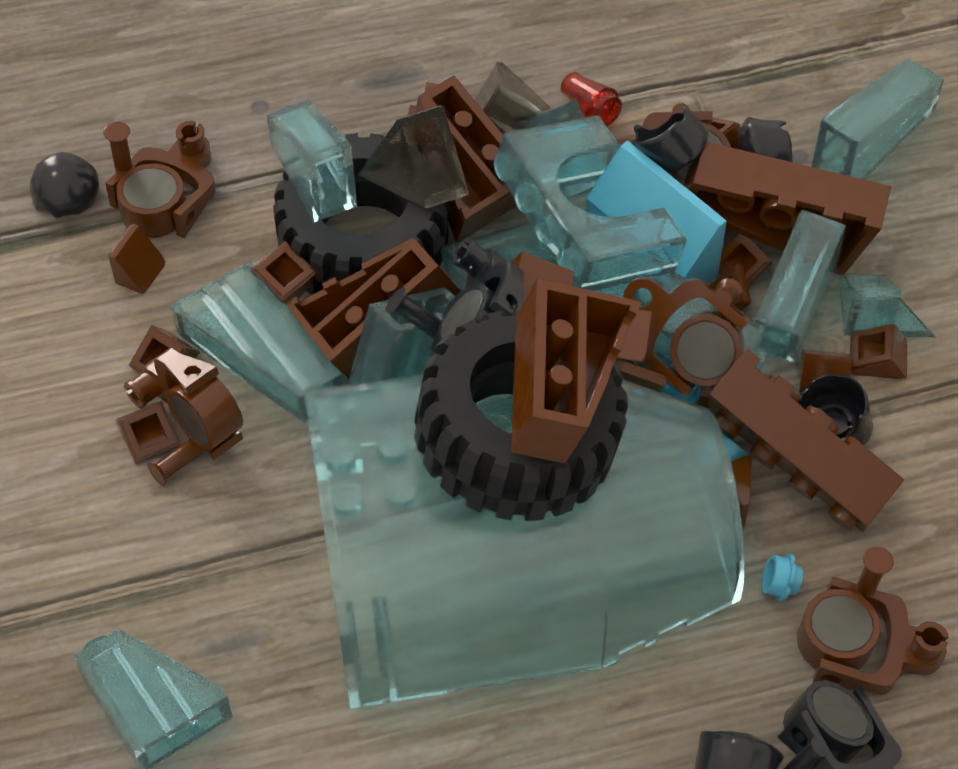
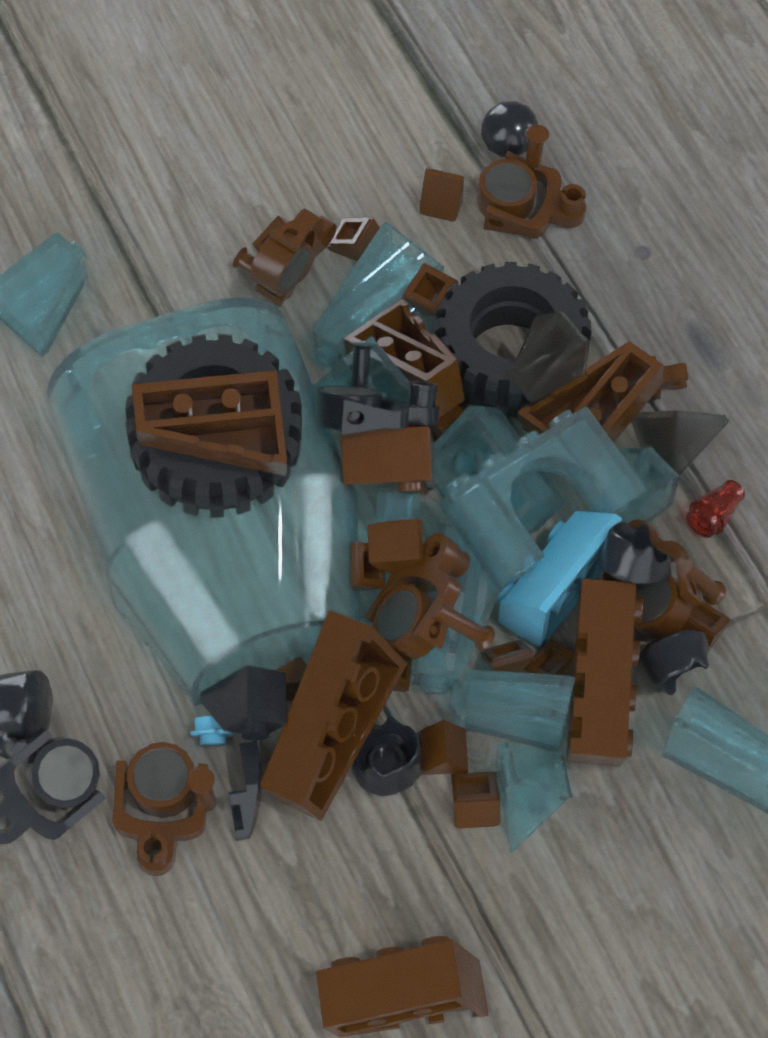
camera: 80 degrees right, 5 degrees up
(314, 158) = (524, 266): clear light blue slope -> none
(780, 516) = (248, 702): none -> black slope
(848, 543) = (246, 802): none -> black slope

